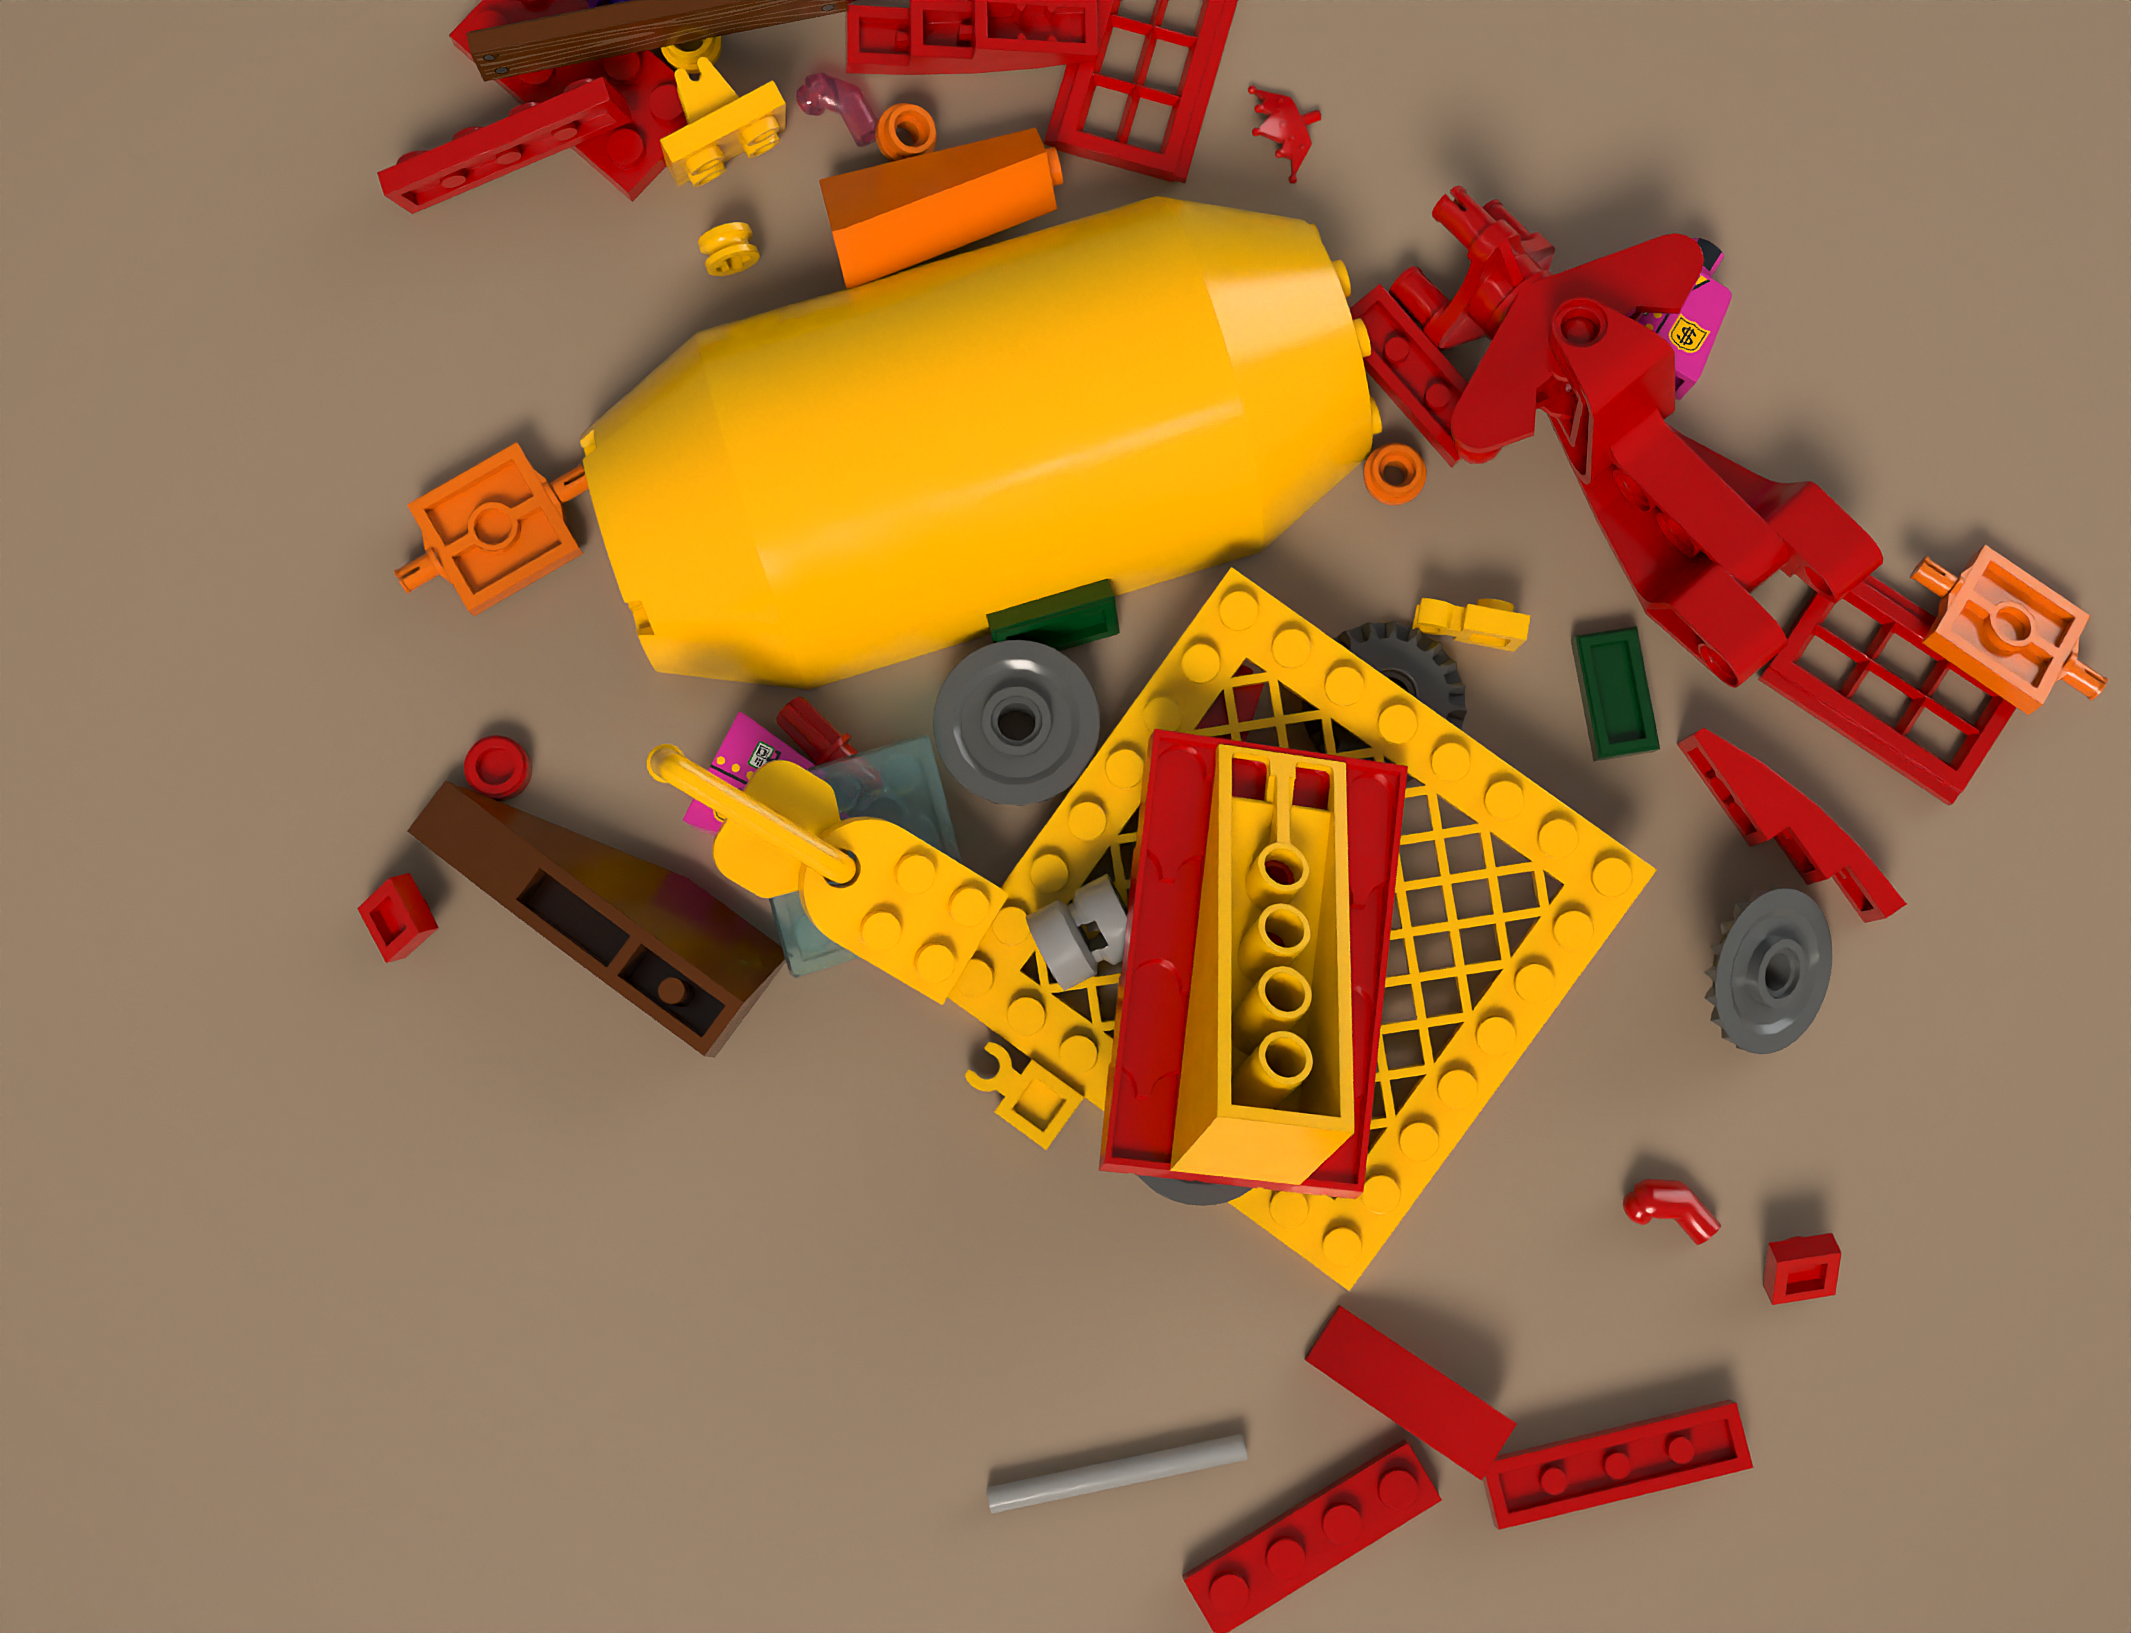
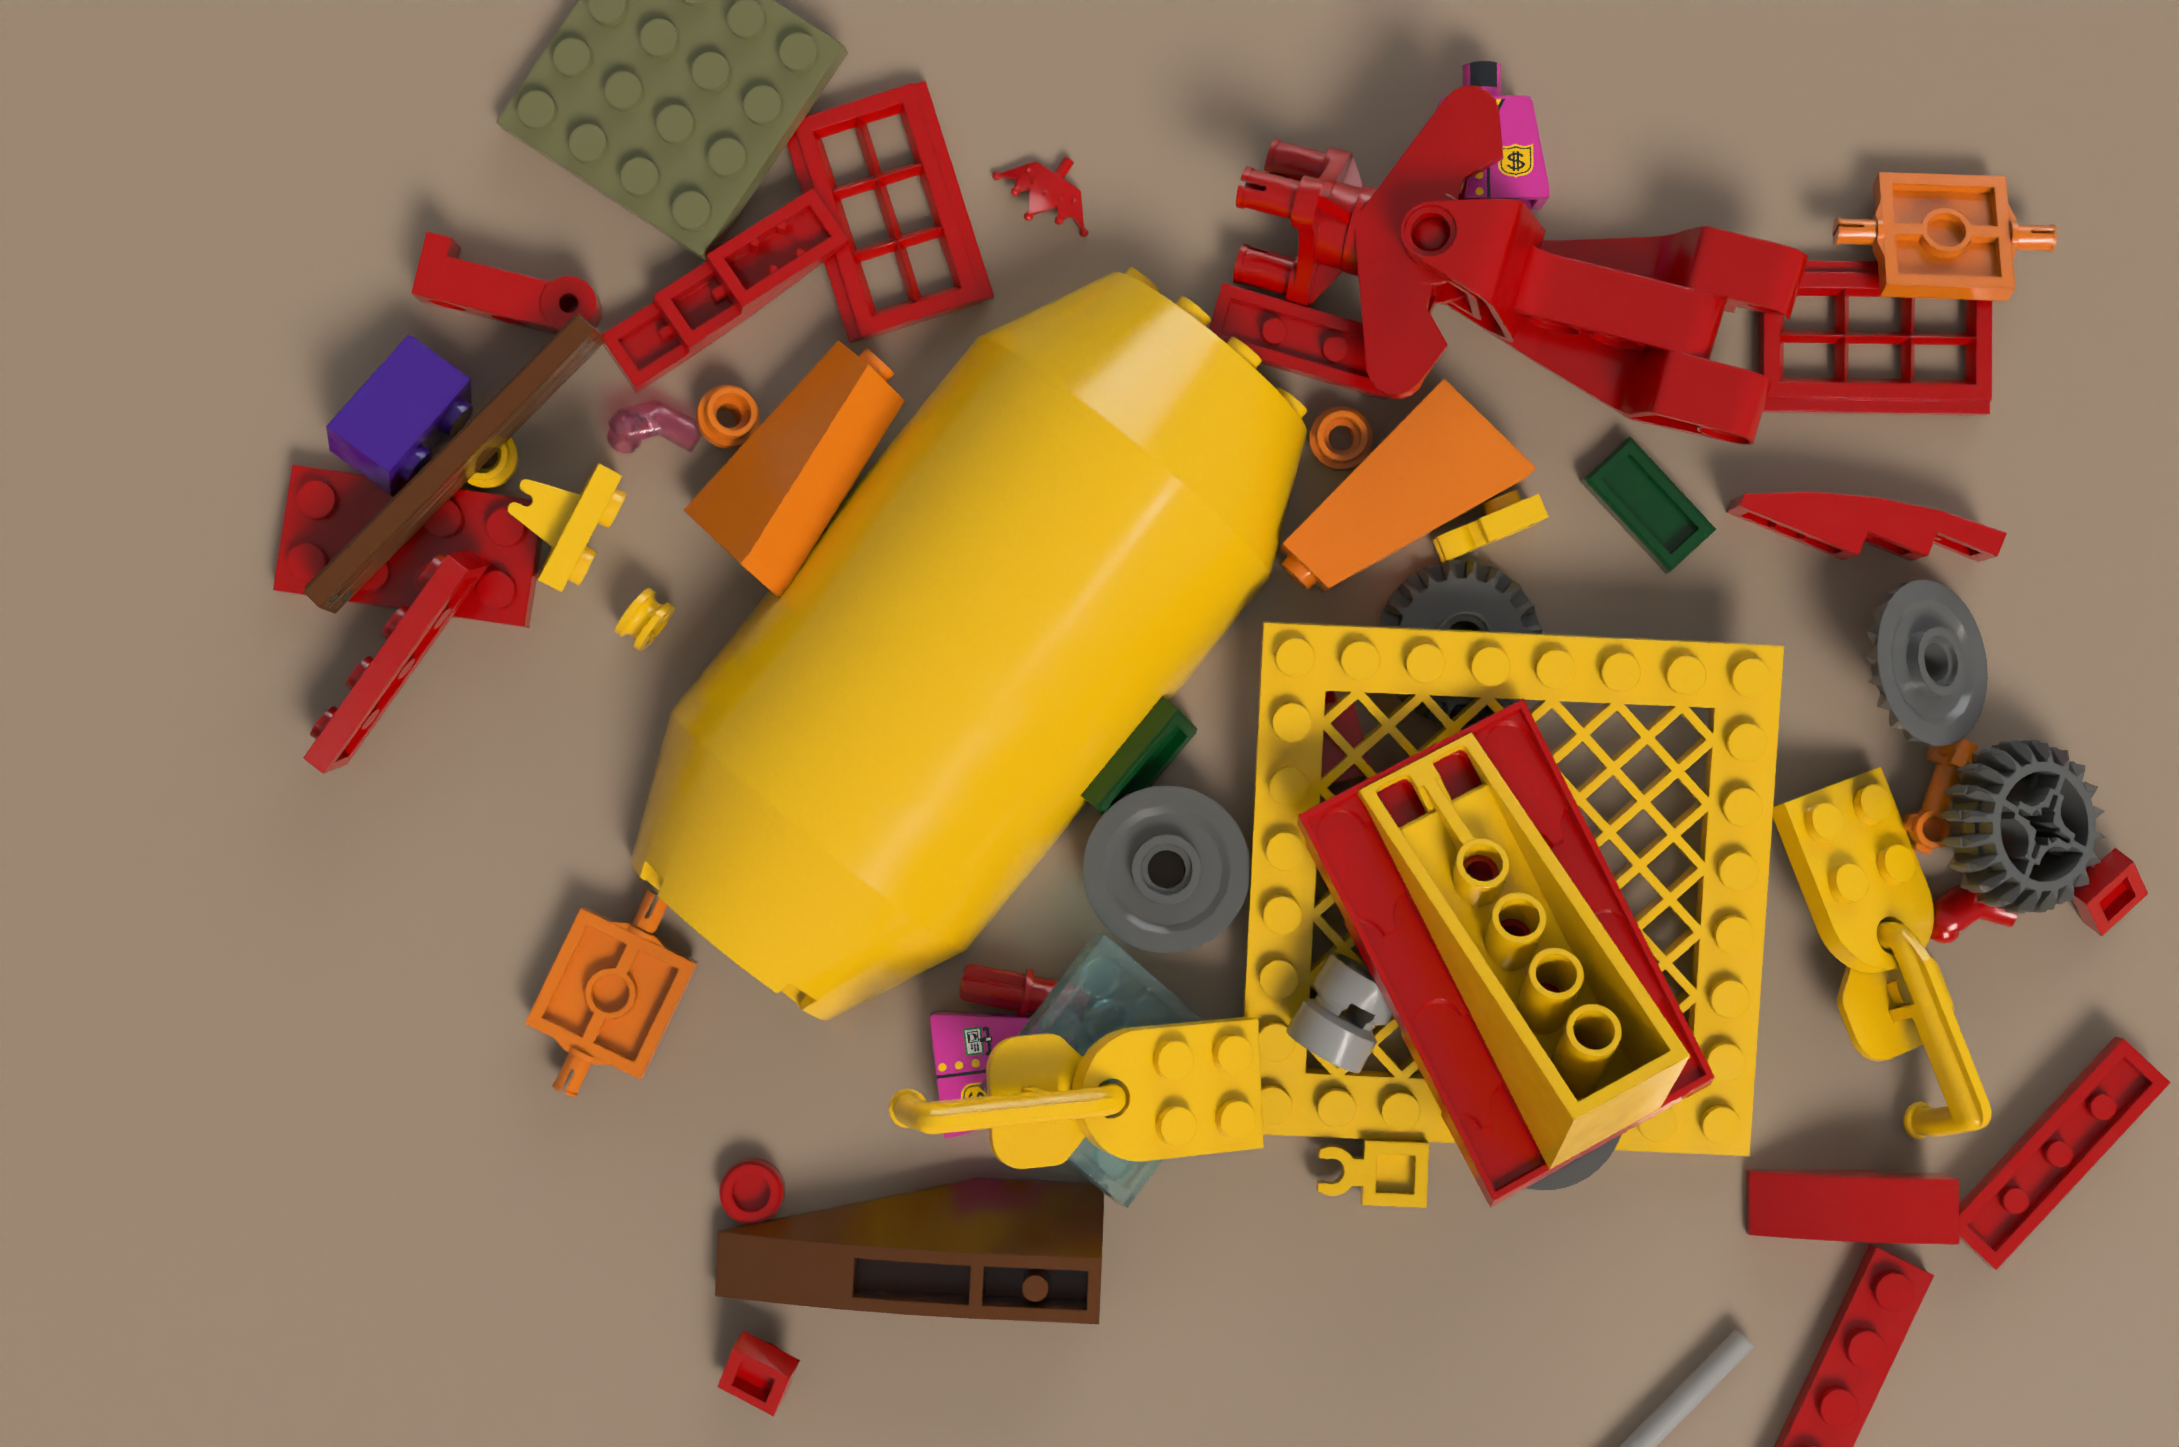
camera: 30 degrees left, 5 degrees up
(1428, 543) = (1411, 484): none -> orange slope
(1589, 1159) = (1877, 921): none -> yellow plate
(1687, 1112) = (1925, 826): none -> orange bar
(1743, 1156) = (2022, 826): none -> dark grey gear

